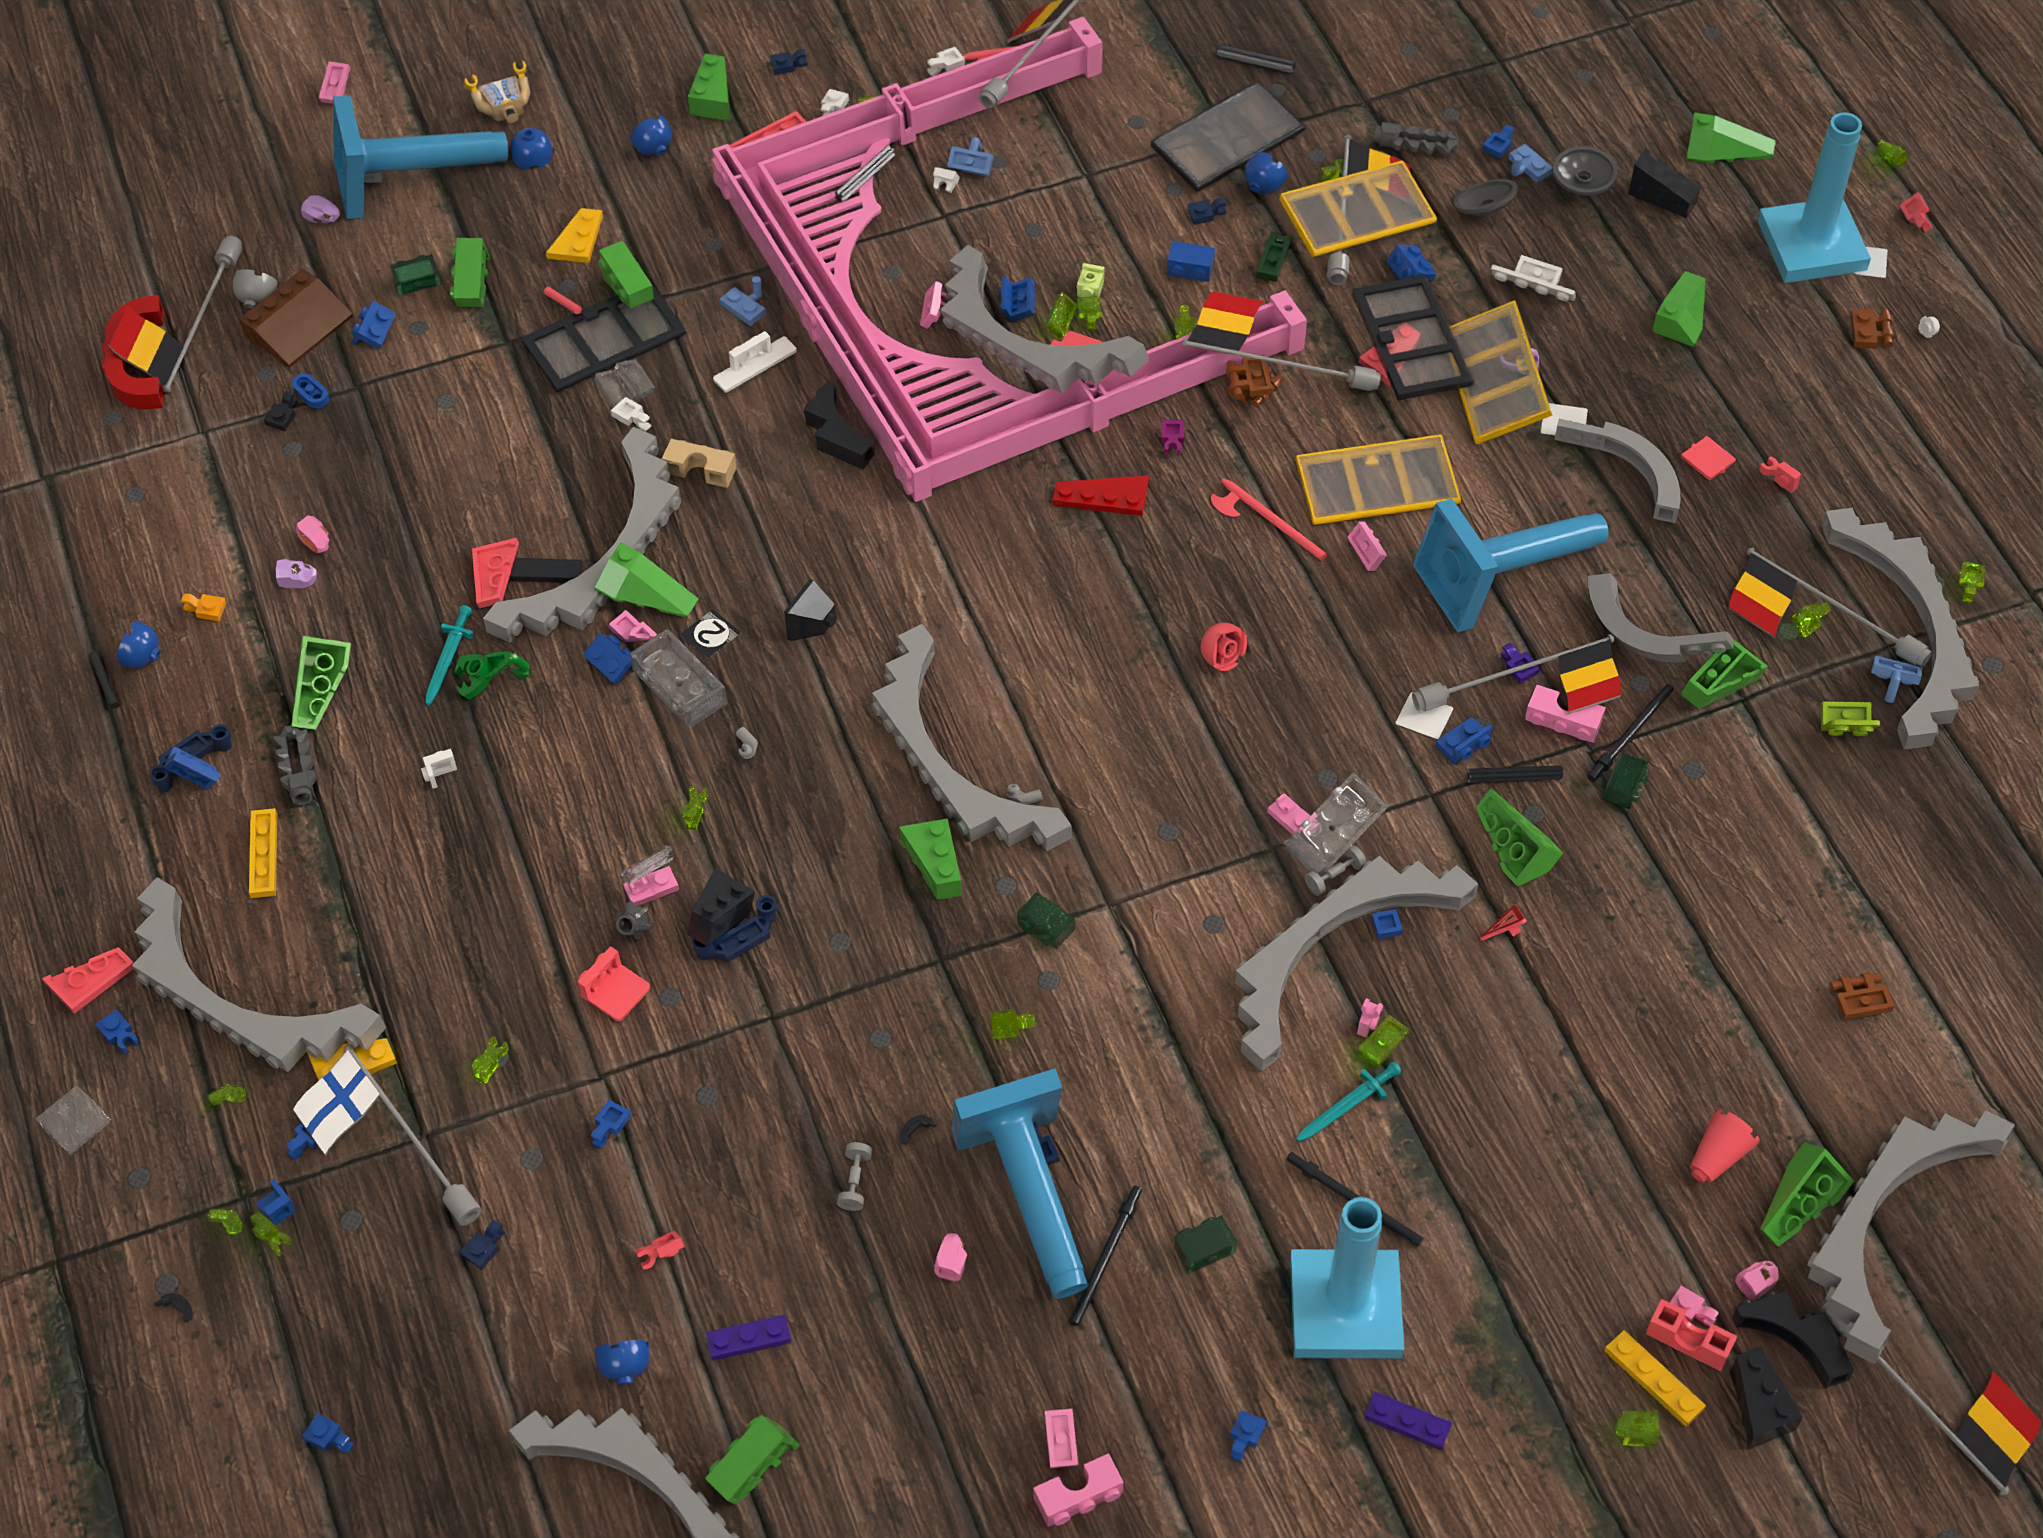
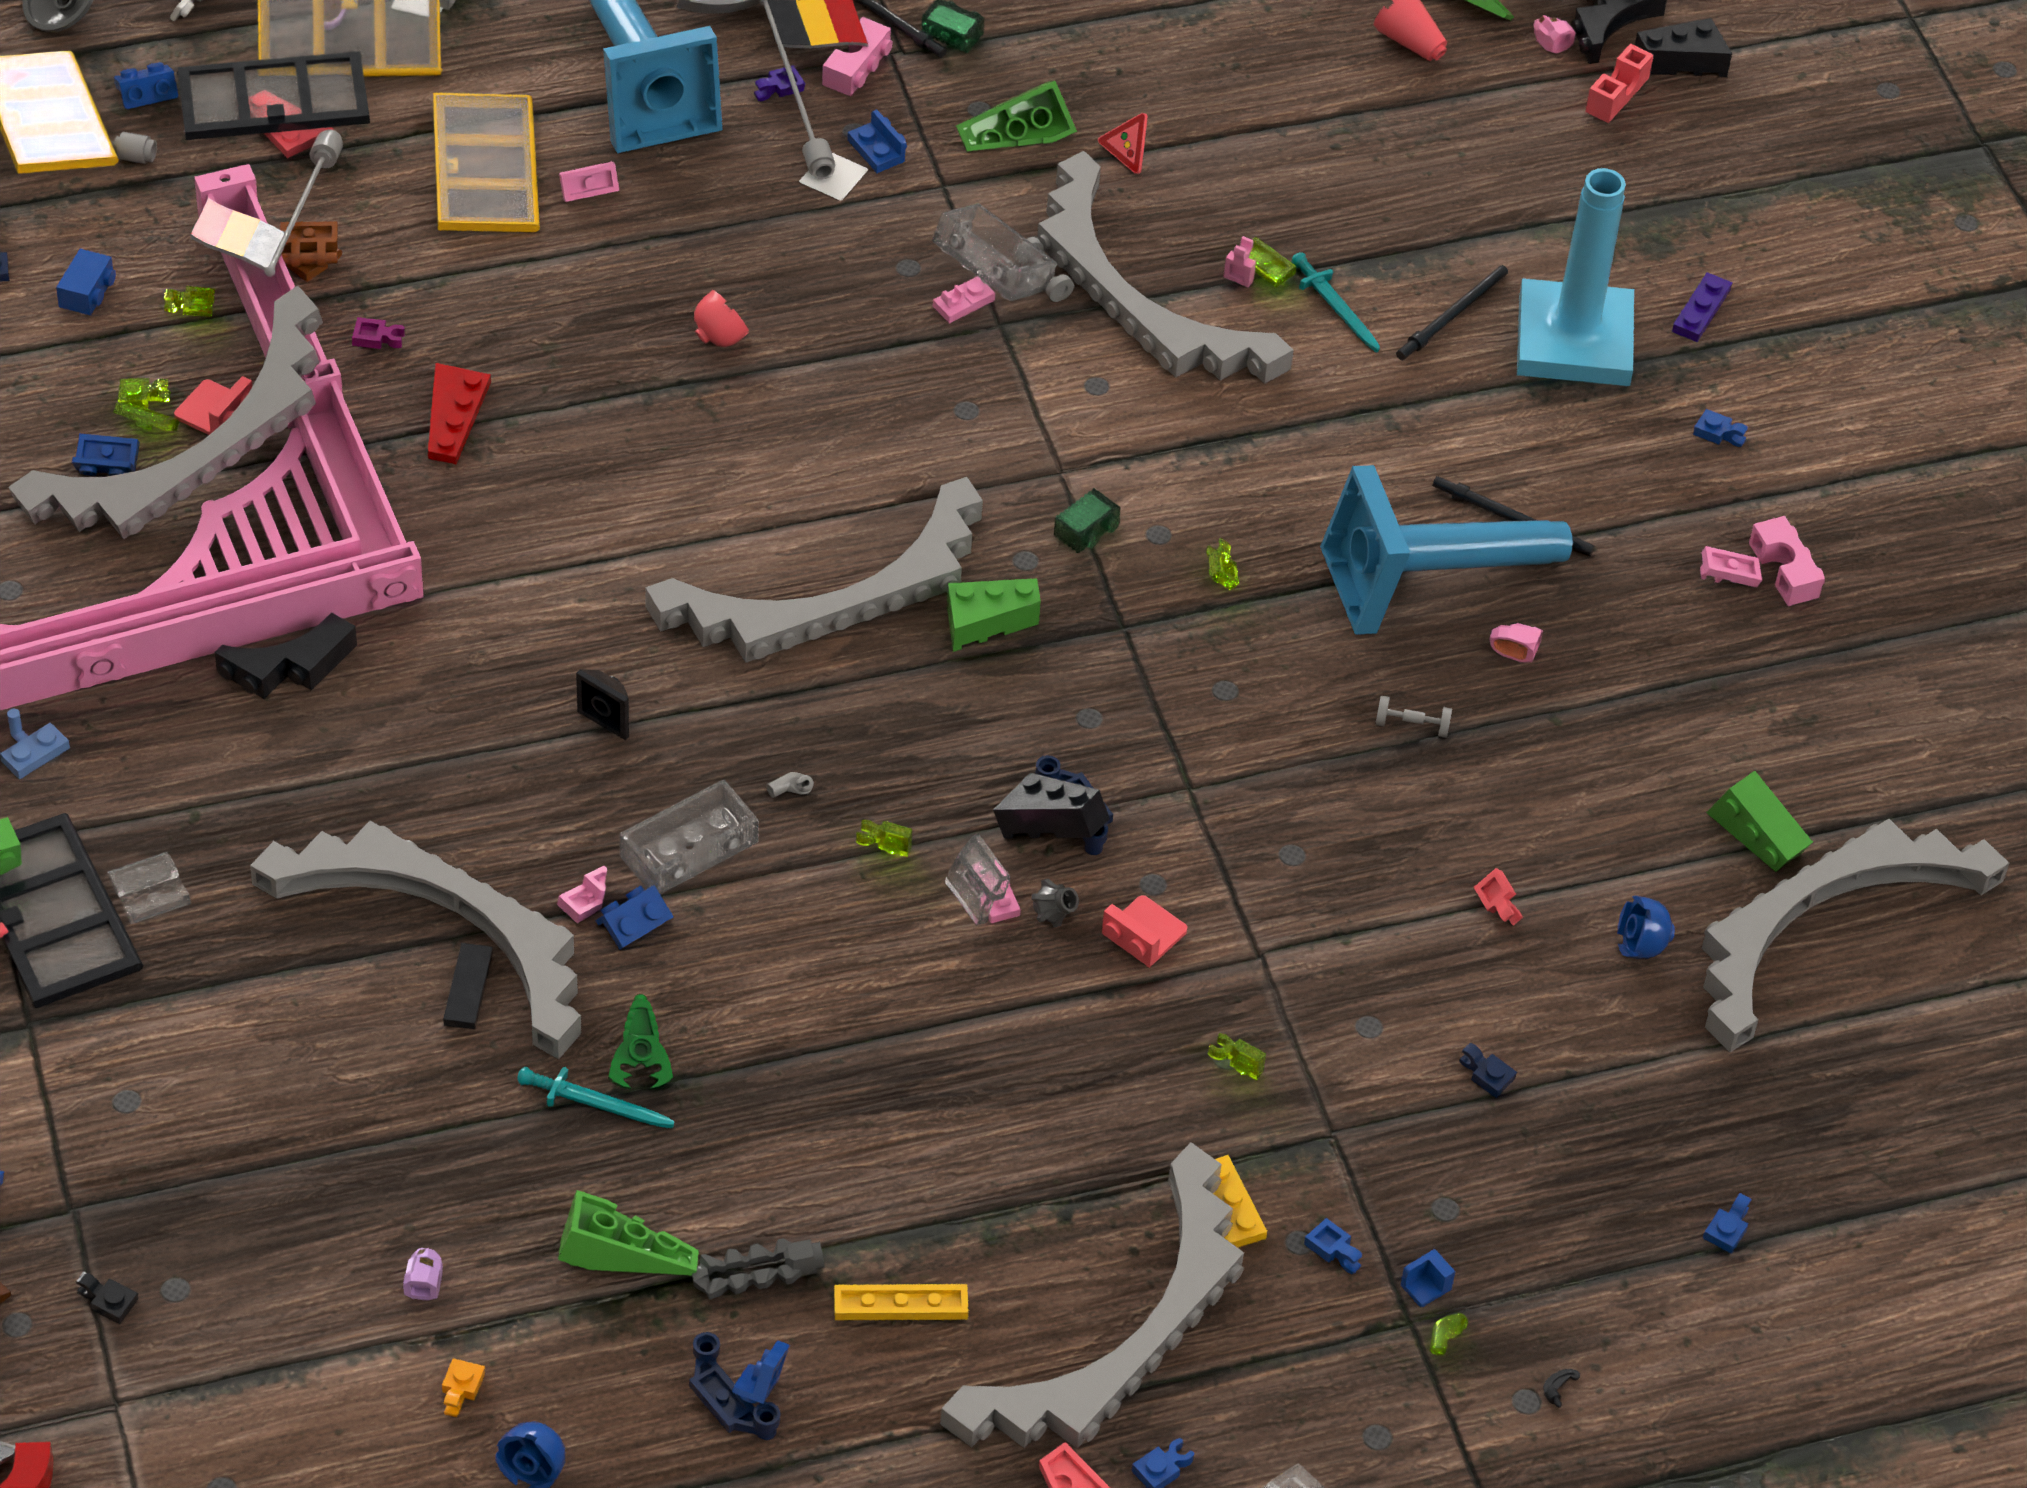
camera: 90 degrees left, 5 degrees down
(228, 1092) = (1264, 1334): clear neon green arm -> none
(267, 1230) = (1465, 1286): clear neon green plate -> none
(313, 394) = (74, 1258): blue plate -> none
(313, 534) = (359, 1249): bright pink rock -> none
(344, 1099) = (1297, 1207): flag -> none
(438, 764) = (788, 1112): white bracket -> none
(492, 570) = (465, 1041): coral wing -> none
(610, 1119) = (1329, 938): blue plate -> none
(628, 412) = (210, 881): white plate -> none
(638, 580) = (526, 868): bright green wedge -> none
(710, 633) = (602, 817): sticker -> none
(717, 464) = (326, 786): tan arch -> none
(748, 1337) = (1607, 829): dark purple plate -> none
(752, 359) = (149, 741): white bracket -> none
(913, 1124) = (1344, 667): black piece -> none
(933, 302) = (94, 544): bright pink plate -> none
(1014, 794) = (907, 530): light grey arm -> none
(1090, 281) = (94, 383): yellowish green brick -> none
(1205, 1243) = (1506, 430): clear green brick -> none
(1226, 506) = (494, 303): coral piece -> none
(1274, 256) = (95, 205): dark green plate -> none
(1386, 924) = (1117, 239): blue plate -> none
(1506, 774) = (928, 112): black axle -> none
(1638, 1436) = (1712, 139): clear neon green brick -> none
(1655, 1378) = (1655, 125): yellow plate -> none
(1694, 1306) = (1577, 87): bright pink plate -> none

